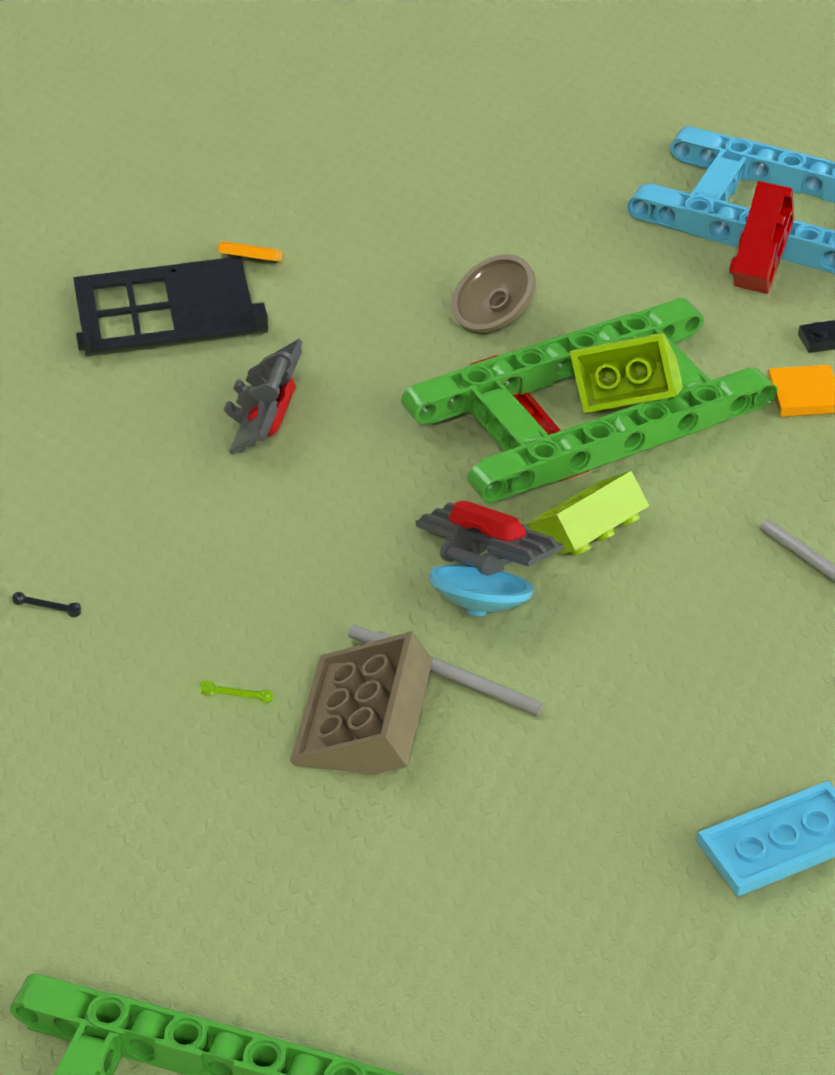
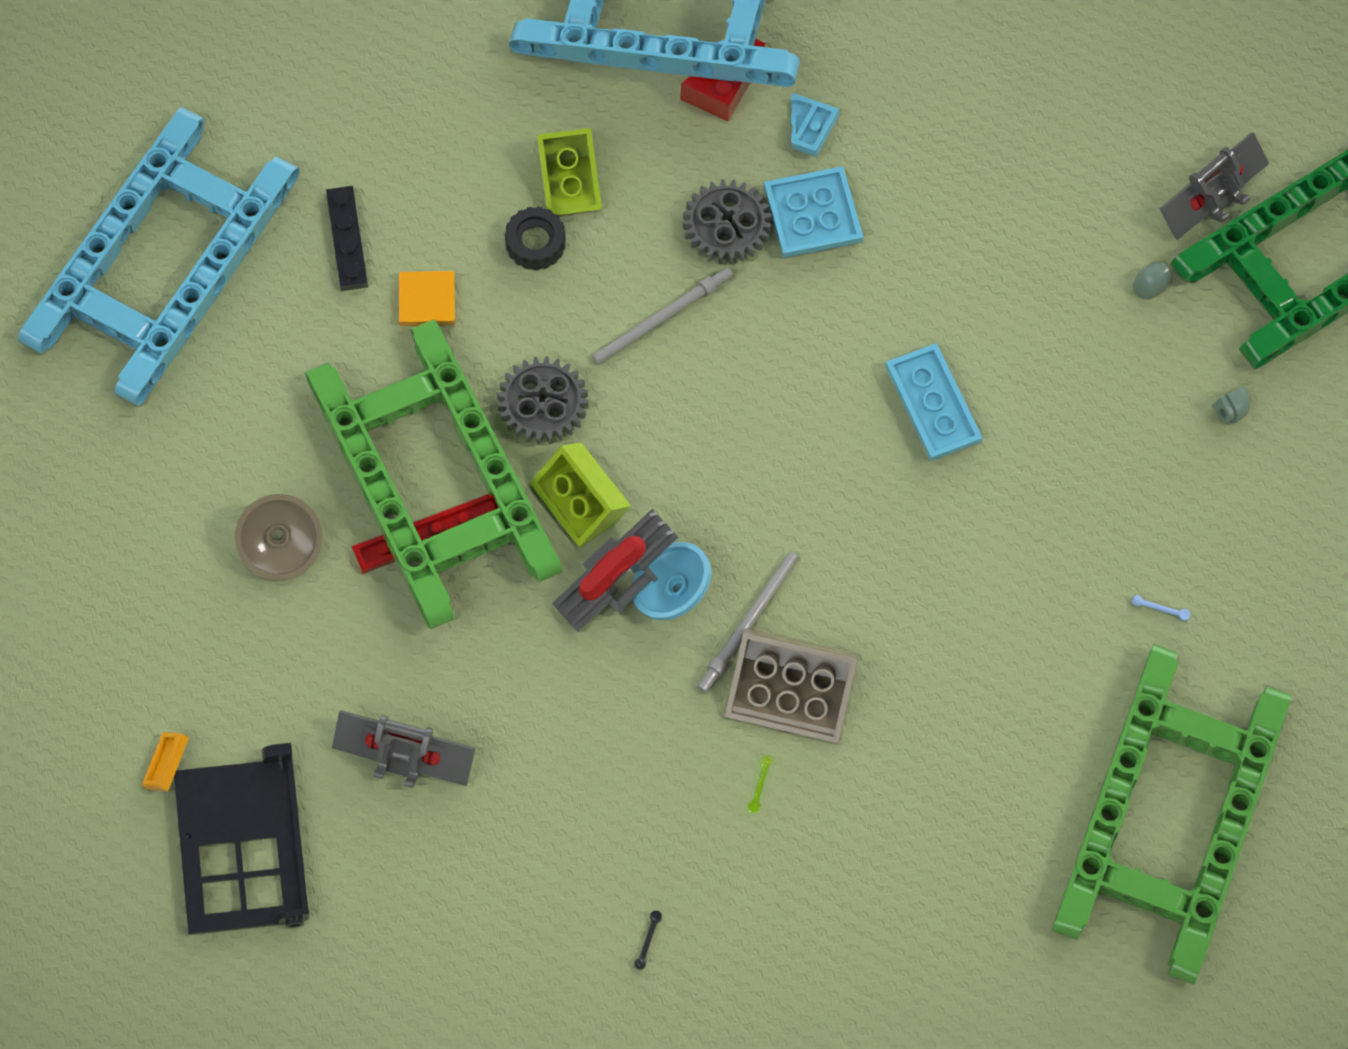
camera: 90 degrees left, 25 degrees up
(626, 372) = (435, 433): lime slope -> none
(674, 479) = (545, 377): none -> dark grey gear
(763, 237) = (238, 292): red wedge -> none

